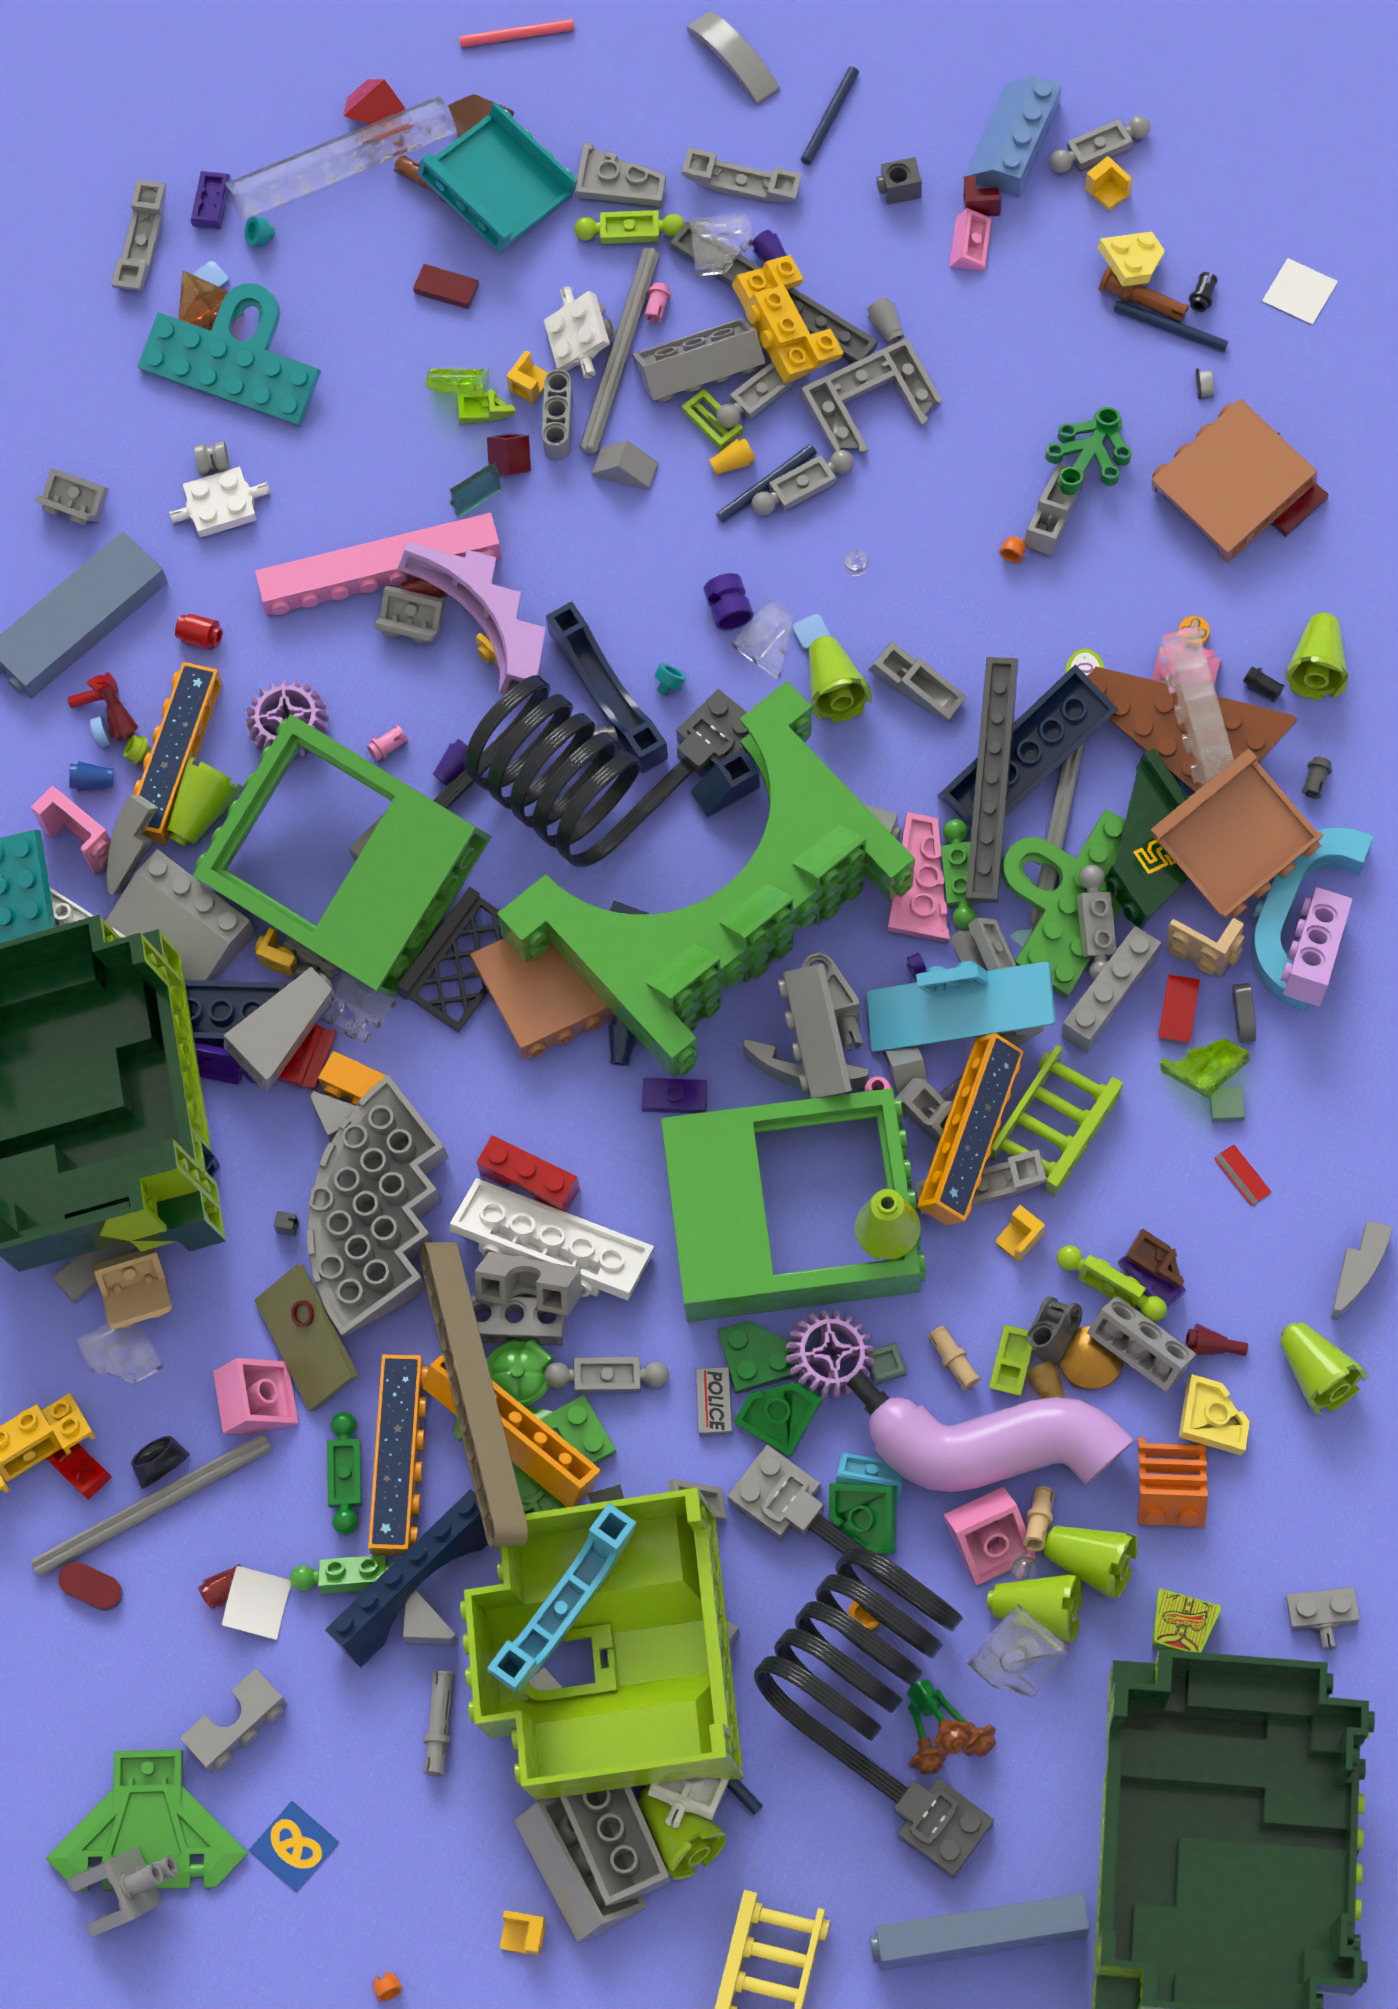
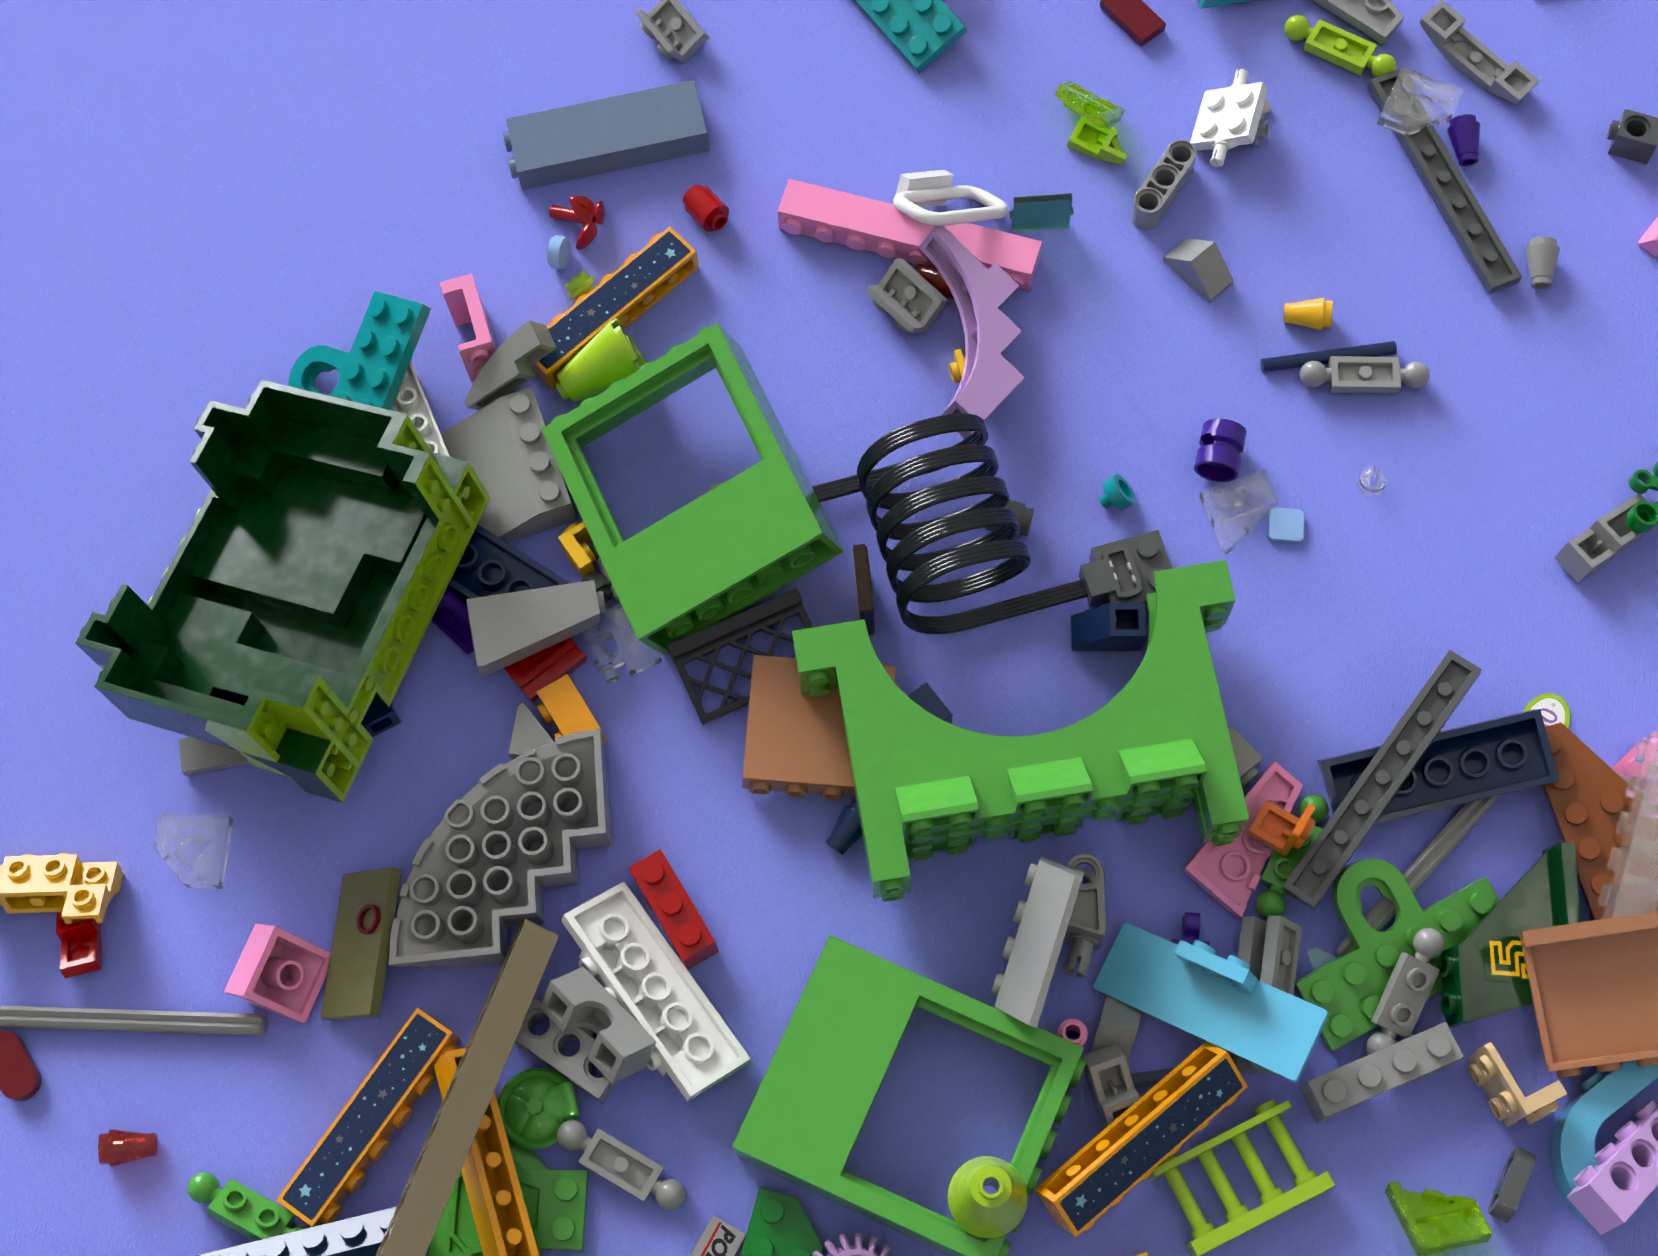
camera: 30 degrees right, 0 degrees up
(89, 776) = (521, 286): blue cone -> none
(120, 722) = (581, 249): dark red cone -> none
(133, 1288) = (237, 798): tan bracket -> none
(157, 1460) = (152, 978): black piece -> none
(204, 457) = (819, 57): light grey wheel -> none
(219, 502) = (801, 102): white plate -> none
(256, 1602) = (143, 1185): white sticker -> none
(264, 718) = (731, 315): lavender gear -> none
(284, 1223) = (419, 816): dark grey piece -> none
(344, 1473) = (310, 1104): green plate -> none
(377, 516) = (933, 189): none -> white bar
(387, 743) = (808, 406): bright pink pin -> none
(451, 763) = (849, 461): dark purple cone -> none
(509, 453) = (1095, 197): dark red panel -> none
(519, 854) = (863, 586): none -> dark brown tile
(526, 379) = (1154, 135): yellow panel -> none
(585, 657) = (1049, 469): dark blue arch -> none
(619, 351) = (1259, 157): light grey axle -> none
(658, 294) = (1329, 124): bright pink pin -> none
(674, 1095) = (868, 914): dark purple plate -> none
(694, 403) = (1316, 291): lime tile -> none
(699, 359) = (1333, 204): light grey slope -> none
(753, 396) = (1376, 264): light grey plate -> none
(765, 1056) = (980, 931): light grey slope -> none
(779, 322) = (1432, 207): yellow bracket -> none
(829, 116) = (1599, 41): dark blue bar -> none
(835, 682) = (1279, 588): lime cone -> none
(894, 363) = (1526, 307): light grey wedge -> none
(917, 681) = (1364, 634): light grey slope -> none
(940, 857) = (1280, 828): none -> orange bracket
(1005, 1179) = (1150, 1210): light grey slope -> none
(1013, 549) = (1541, 554): orange hinge -> none
(1179, 1008) = (1443, 1136): red slope -> none

